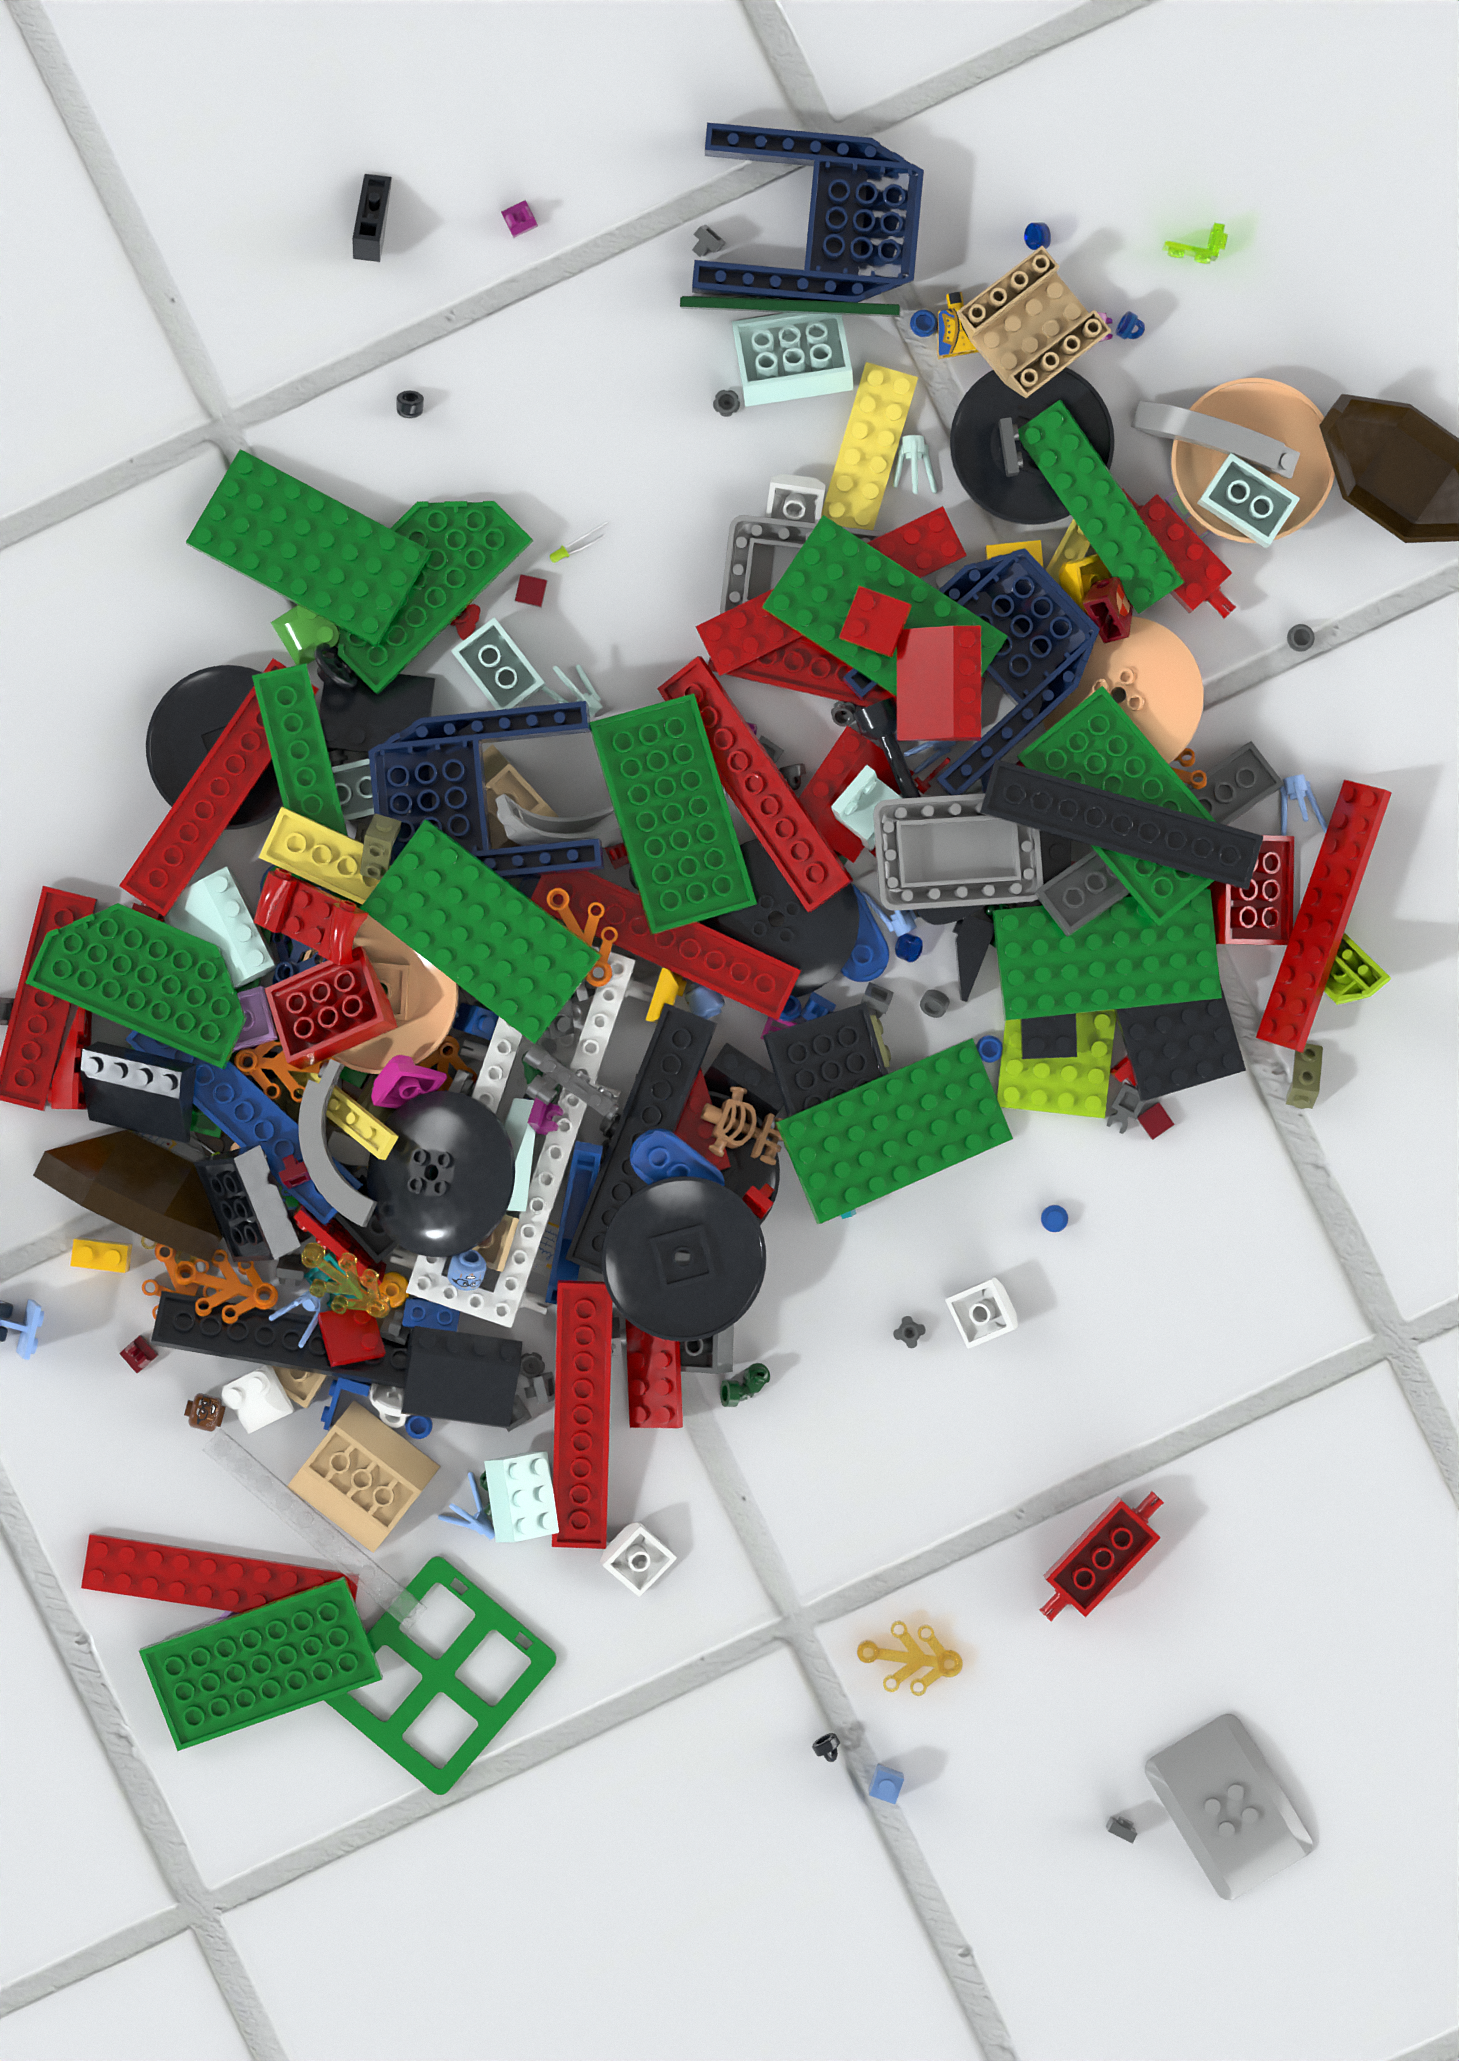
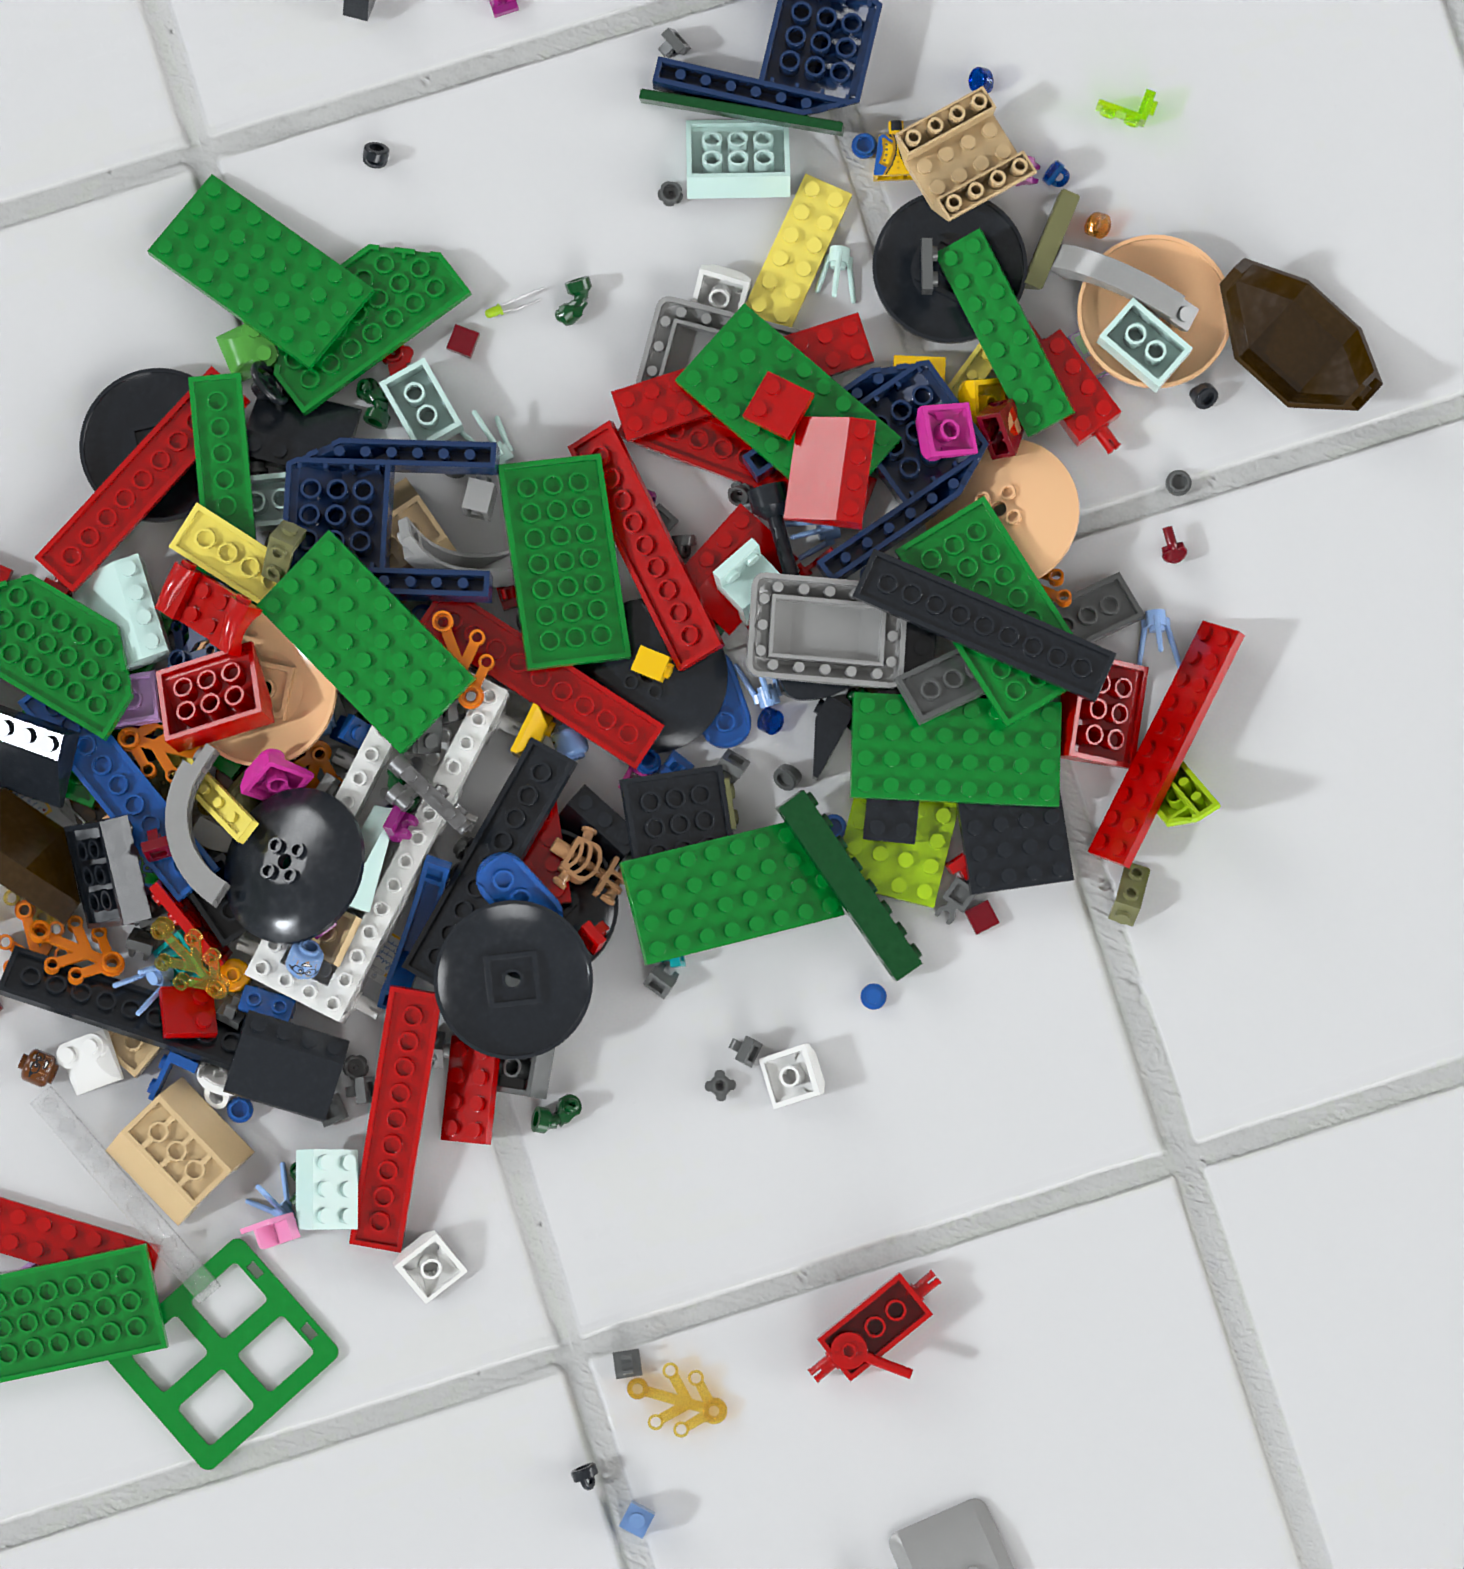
camera: 10 degrees right, 5 degrees down
(443, 660) = (370, 392): none -> dark green arm
(473, 1546) = (274, 1230): none -> bright pink panel
(574, 756) = (479, 498): none -> light grey brick
(640, 544) = (572, 311): none -> dark green arm
(780, 909) = (652, 664): none -> yellow brick
(833, 1235) = (660, 981): none -> dark grey tile
(853, 1628) = (627, 1363): none -> dark grey tile
(932, 1292) = (746, 1051): none -> dark grey tile
(1014, 1109) = (849, 885): none -> dark green brick
(1053, 623) = (945, 431): none -> dark pink slope
(1082, 1587) = (851, 1350): none -> red piece
(1134, 397) = (1051, 239): none -> olive slope
(1181, 375) = (1098, 225): none -> clear orange tile
(1305, 711) = (1174, 551): none -> dark red plate
(1315, 541) = (1204, 395): none -> black tile

